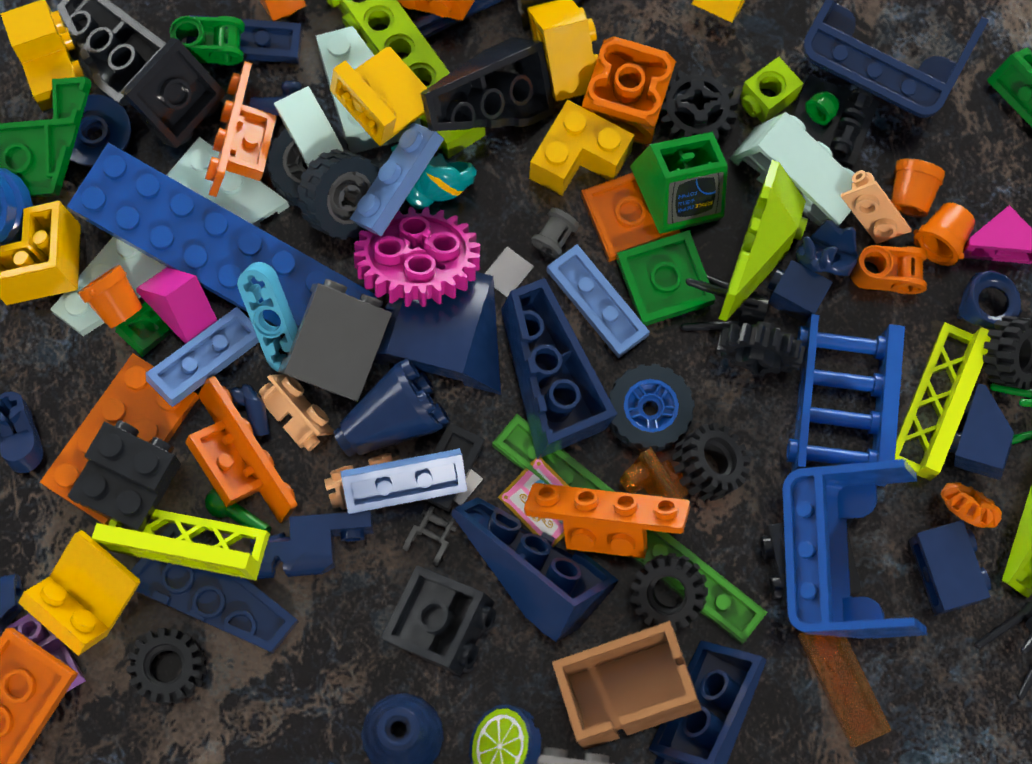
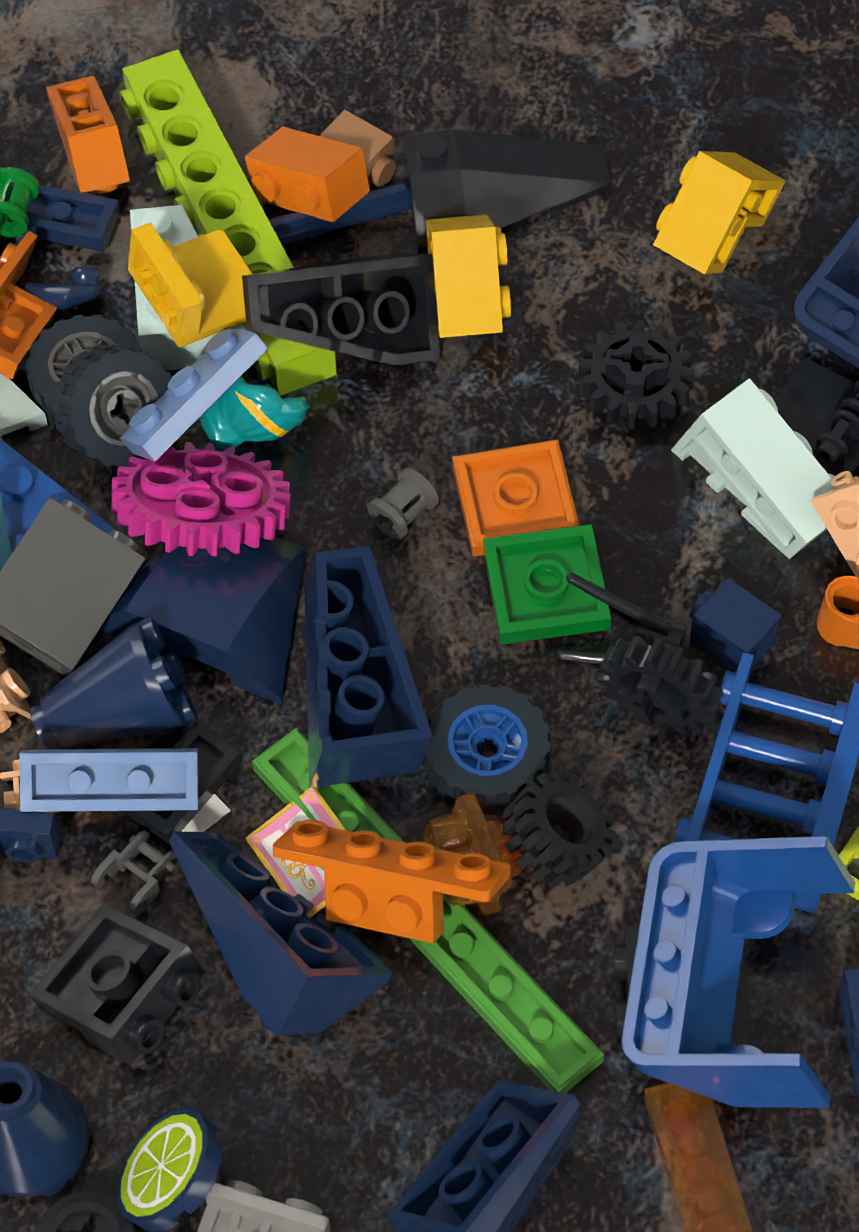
camera: 15 degrees right, 15 degrees down
(307, 124) = (89, 310): light aqua slope -> none
(509, 271) = (328, 537): white sticker -> none
(576, 141) = (458, 391): yellow brick -> none
(597, 301) = (444, 599): medium blue plate -> none
(626, 685) = (365, 1110): medium nougat piece -> none
(629, 86) = (538, 335): orange piece -> none
(679, 569) = (426, 991): black tyre -> none
(683, 181) = (593, 457): green slope -> none
(768, 238) = (695, 542): lime wedge -> none
(780, 80) = (749, 350): lime brick -> none
(822, 107) = (812, 396): green hinge -> none
(829, 250) = (788, 574): dark blue piece -> none

